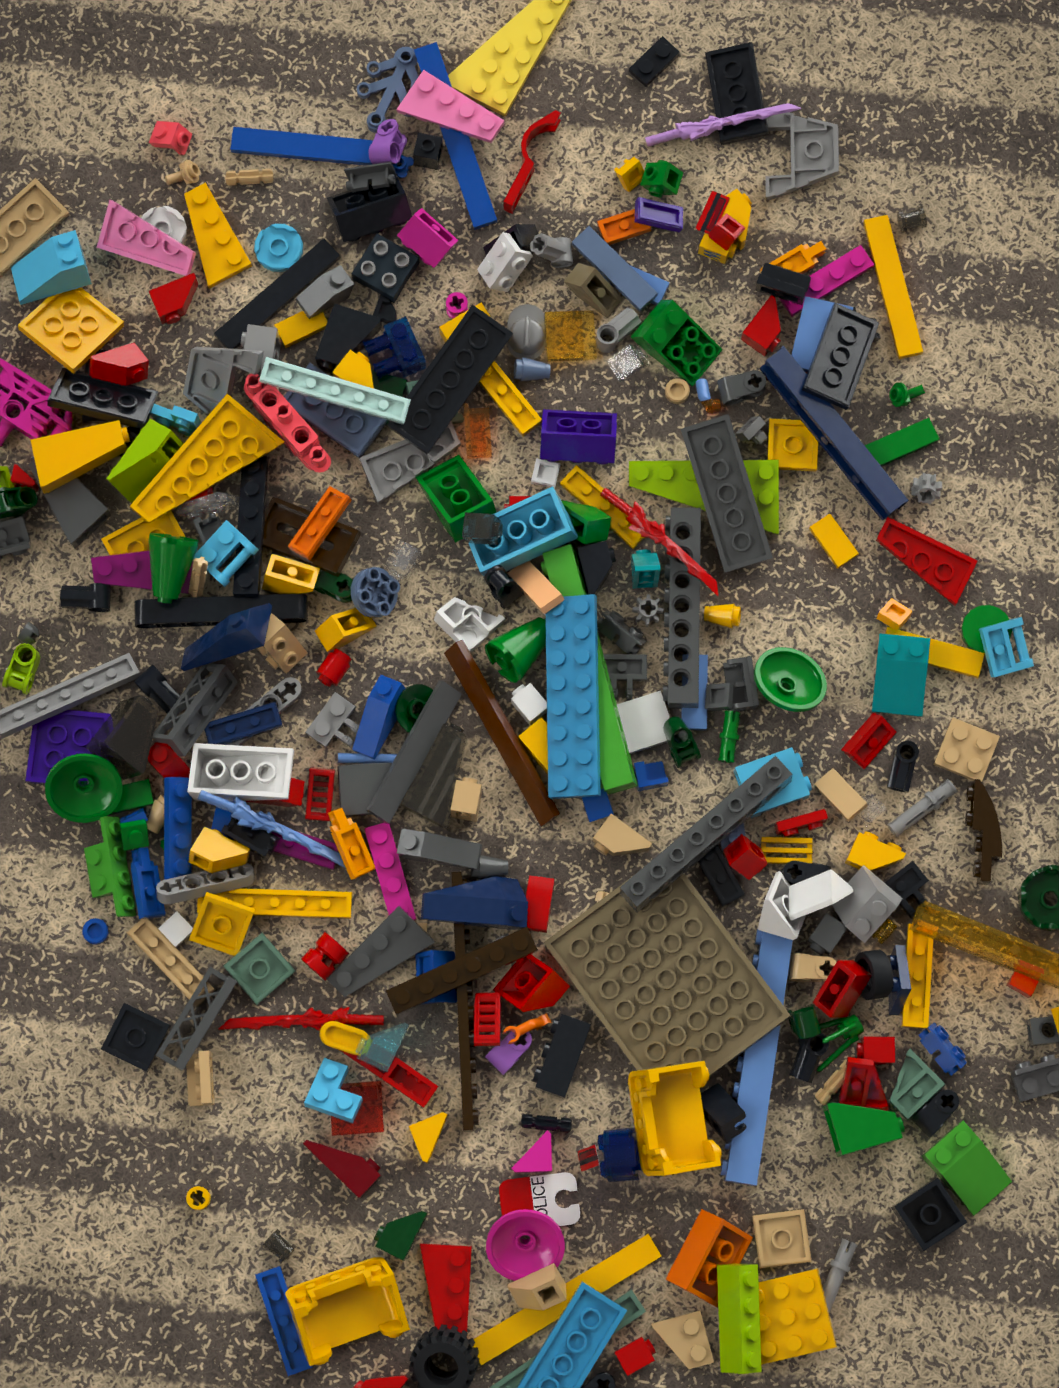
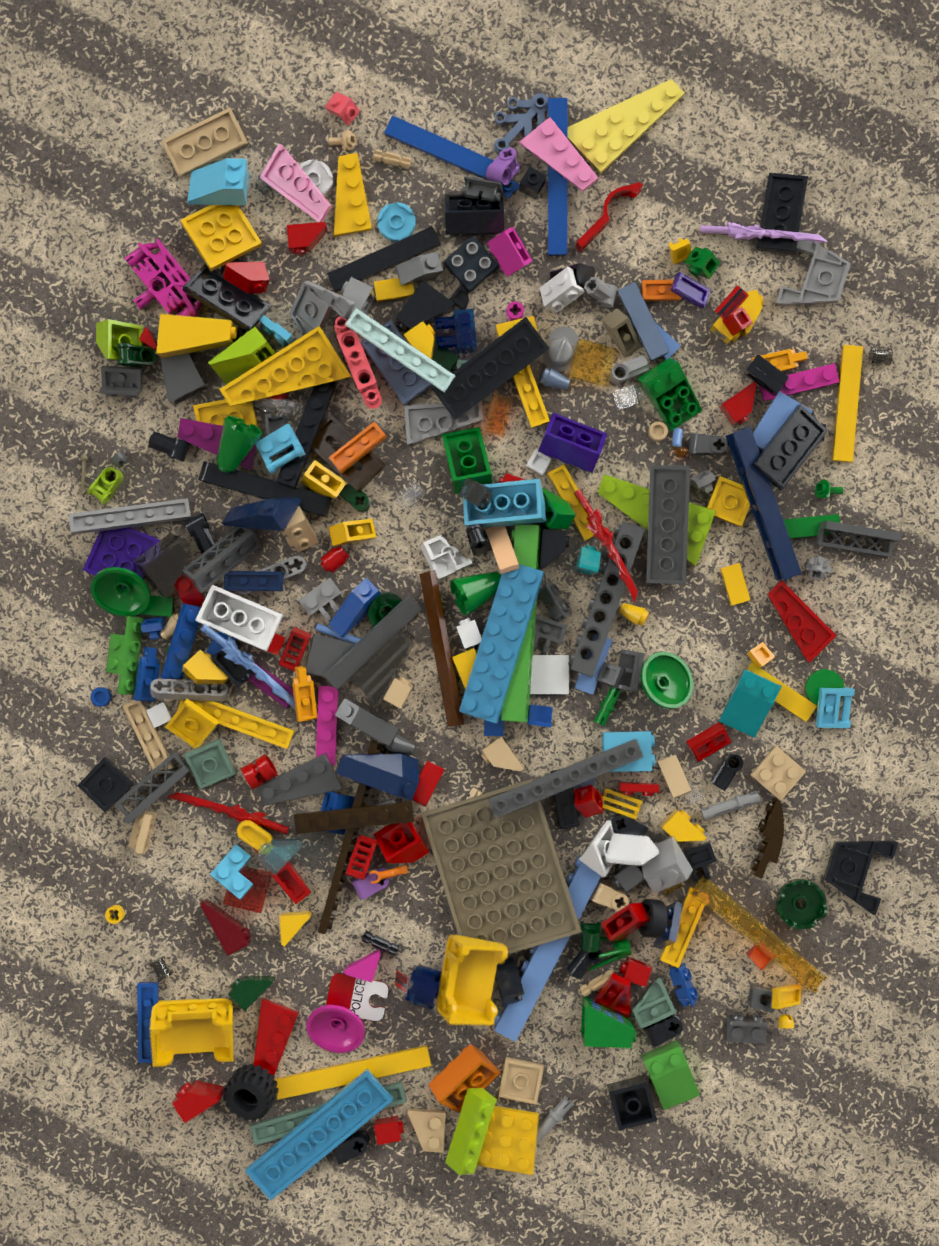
camera: 20 degrees right, 10 degrees up
(134, 834) = (148, 637): green plate -> none
(198, 577) = (254, 460): tan axle -> none
(374, 592) = (382, 512): sand blue tile -> none
(539, 1289) = (336, 1063): tan slope -> none
(561, 1056) = (406, 900): black brick -> none
(641, 610) = (574, 594): light grey gear -> none
(654, 61) = (728, 167): black plate -> none
(681, 745) = (570, 698): dark green piece -> none
(958, 429) = (860, 532): none -> dark grey fence

